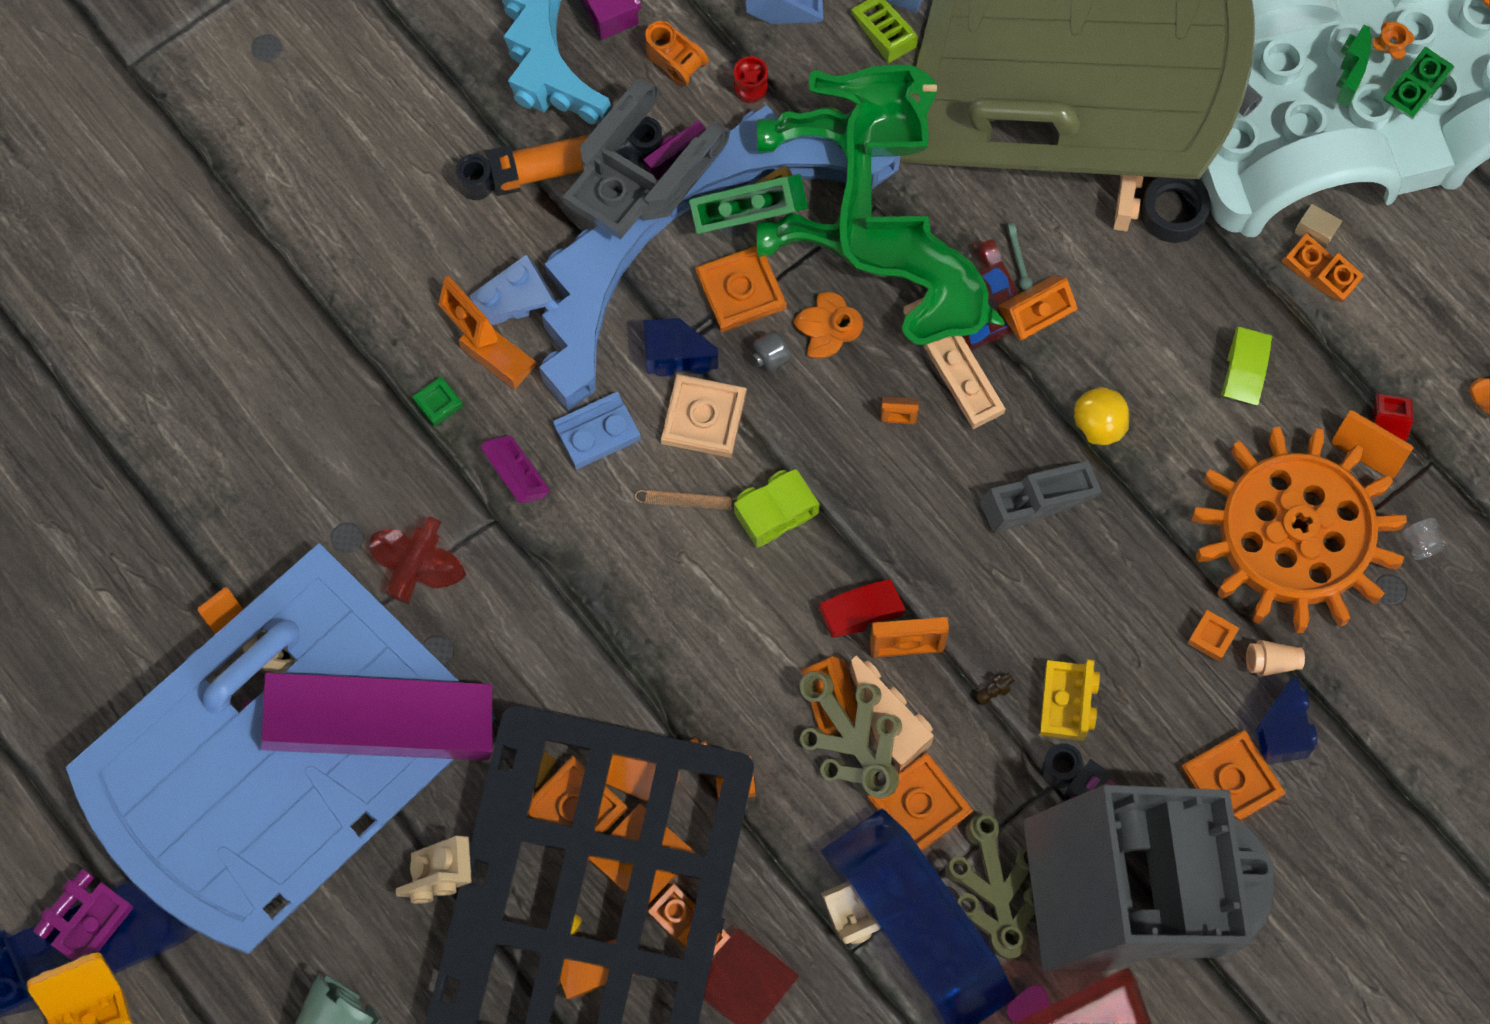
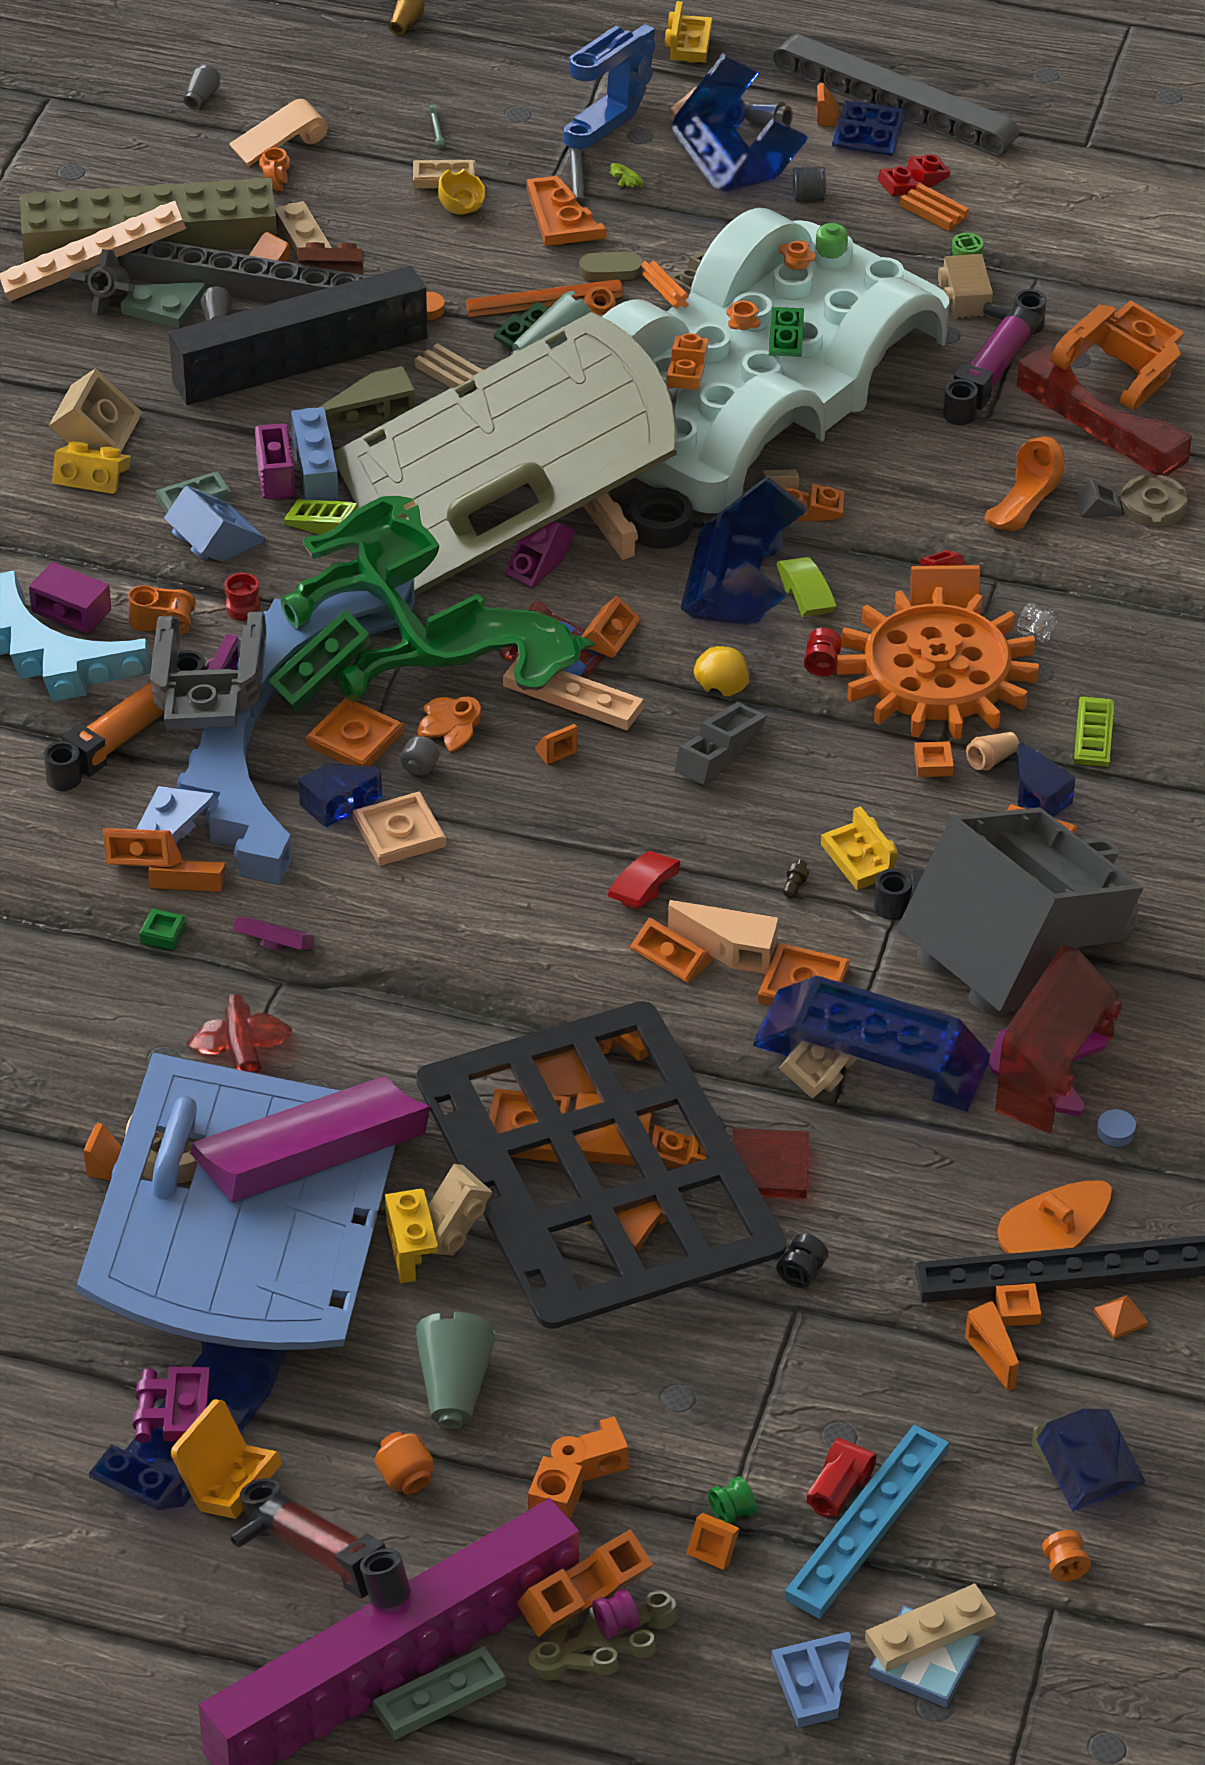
camera: 35 degrees left, 25 degrees down
(392, 863) = (409, 1230): none -> yellow bracket
(597, 430) = (318, 881): medium blue plate -> none
(686, 496) = (439, 880): light nougat piece -> none
(775, 507) = (515, 850): lime brick -> none
(854, 738) = (715, 955): olive plant -> none
(908, 637) = (702, 866): orange tile -> none
(994, 891) = (869, 970): olive plant -> none
(1025, 282) = (543, 595): sand green hinge -> none
(1034, 188) = (540, 553): none -> magenta slope
(1196, 298) = (729, 552): none -> clear blue windscreen
(1204, 452) = (822, 652): none -> red wheel
(1301, 65) = (687, 362): none -> orange slope
(1354, 65) = (729, 340): green slope -> none
(1401, 673) = (1096, 713): none -> lime slope

